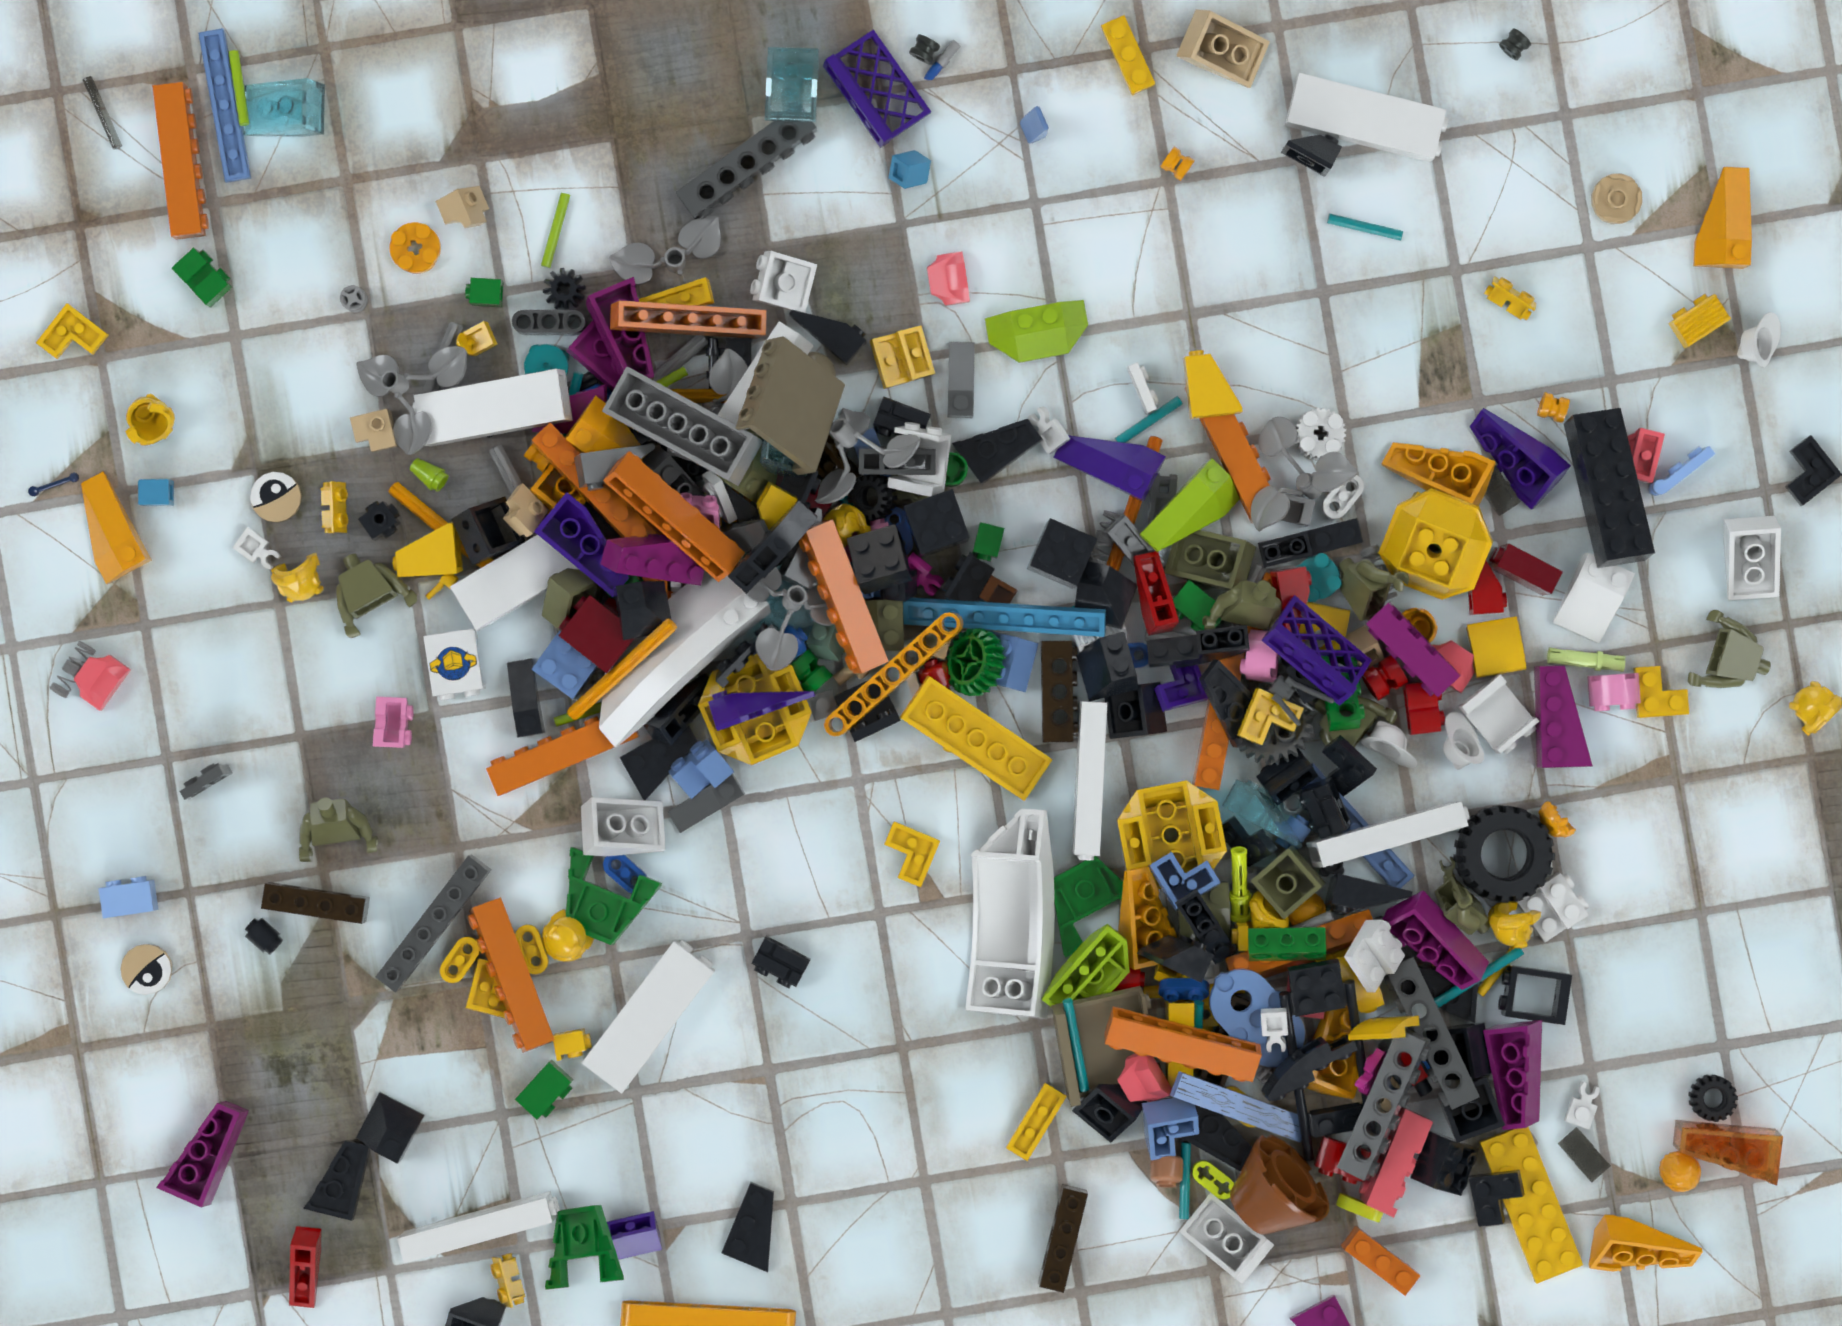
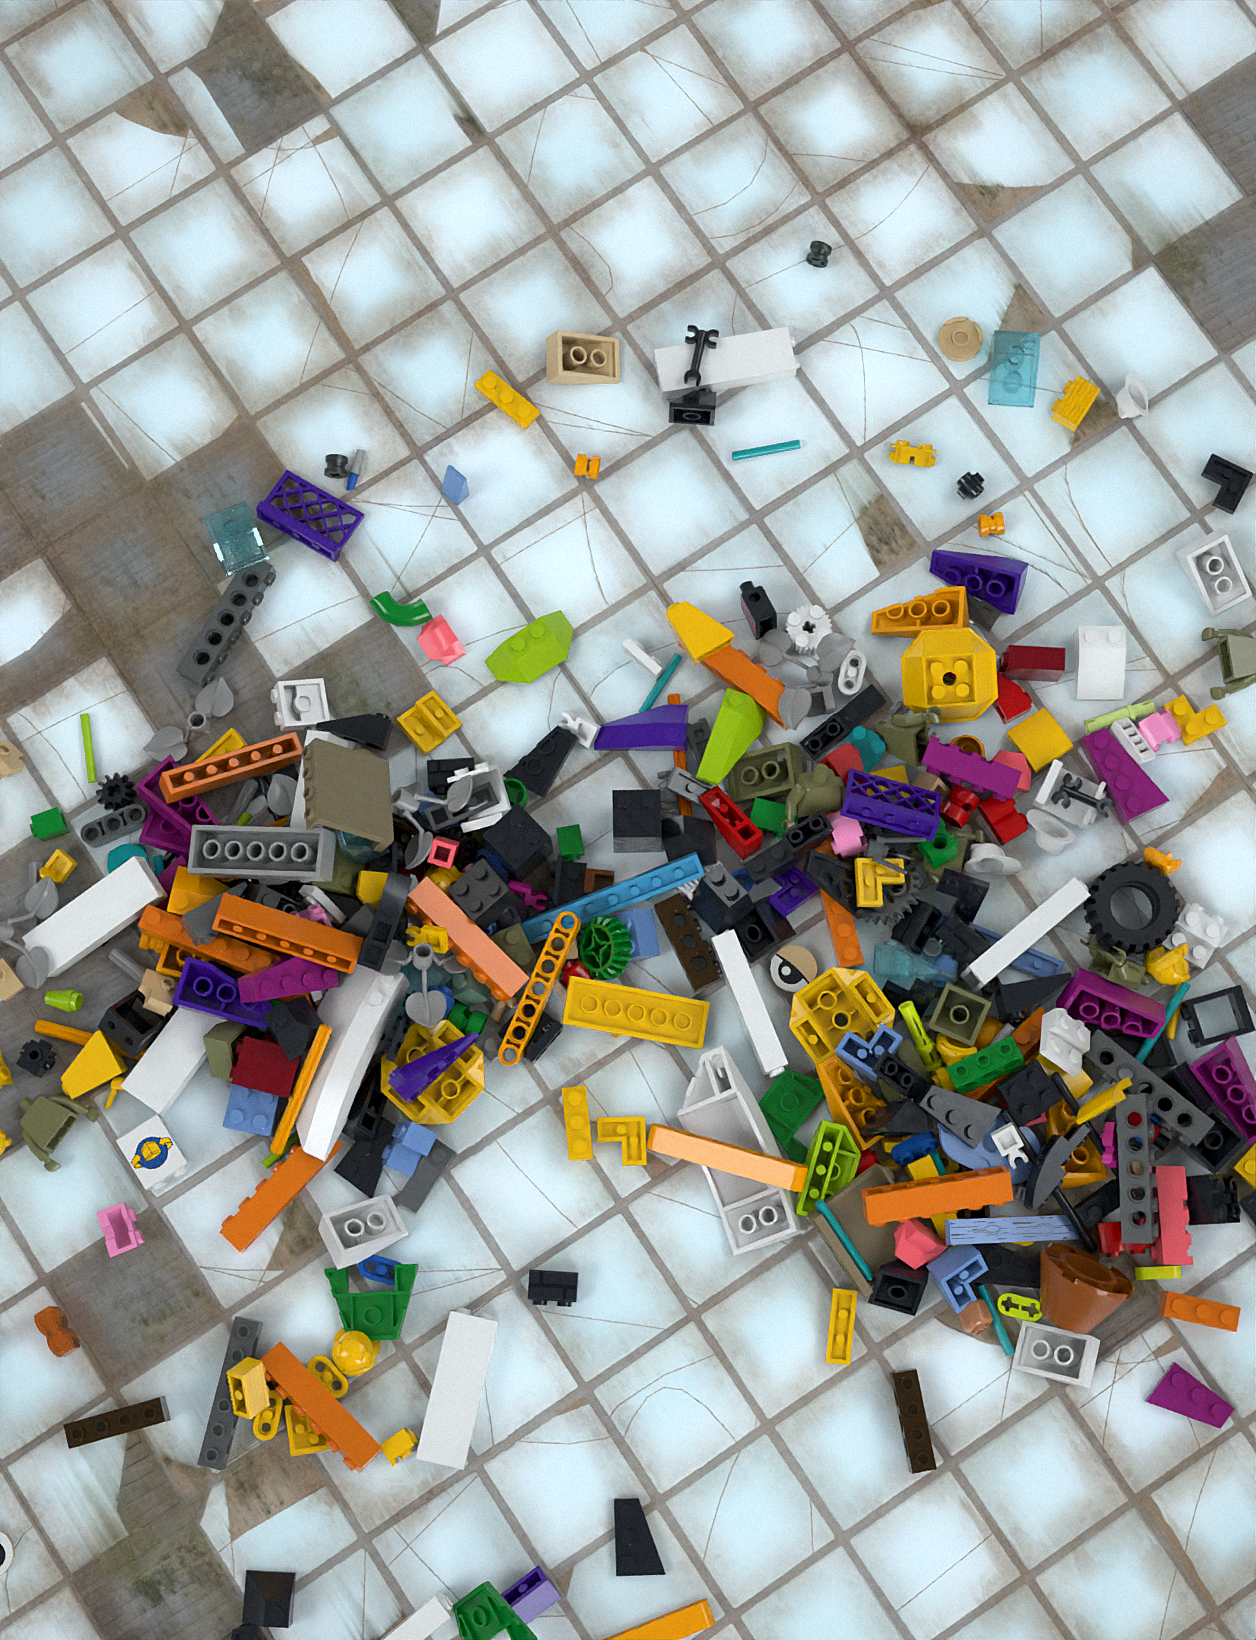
camera: 25 degrees left, 10 degrees down
(263, 935) = (82, 1474): black brick -> none
(294, 798) = (54, 1325): none -> clear orange brick
(333, 823) = (103, 1342): olive torso -> none
(453, 929) = (248, 1388): none -> yellow brick
(525, 698) = (229, 1157): black slope -> none
(544, 1090) = (393, 1499): green brick -> none
(810, 580) = (429, 934): none -> yellow plate
(859, 499) = (443, 852): none -> coral brick
(872, 818) = (577, 1123): none -> yellow brick
(909, 169) = (366, 567): dark azure panel -> none
(921, 233) = (400, 614): none -> green cylinder
(961, 380) = (487, 720): dark grey slope -> none
(1000, 917) = (727, 1157): none -> light orange beam
(1148, 762) = (793, 968): none -> tile
(1239, 978) = (959, 1114): none -> wing
(1279, 398) = (757, 609): none -> black torso
(1351, 84) = (701, 339): none -> black bar
(1501, 712) = (1071, 790): none -> black bar
(1552, 358) = (970, 485): none -> black gear
(1582, 683) = (1132, 741): none -> white slope
(1609, 488) = (1069, 566): black brick -> none
(1645, 451) = (1081, 530): coral slope -> none
(1654, 256) = (1013, 368): none -> clear light blue slope
(1680, 471) = (1120, 529): light blue plate -> none
(1726, 226) = (1060, 320): light orange wedge -> none

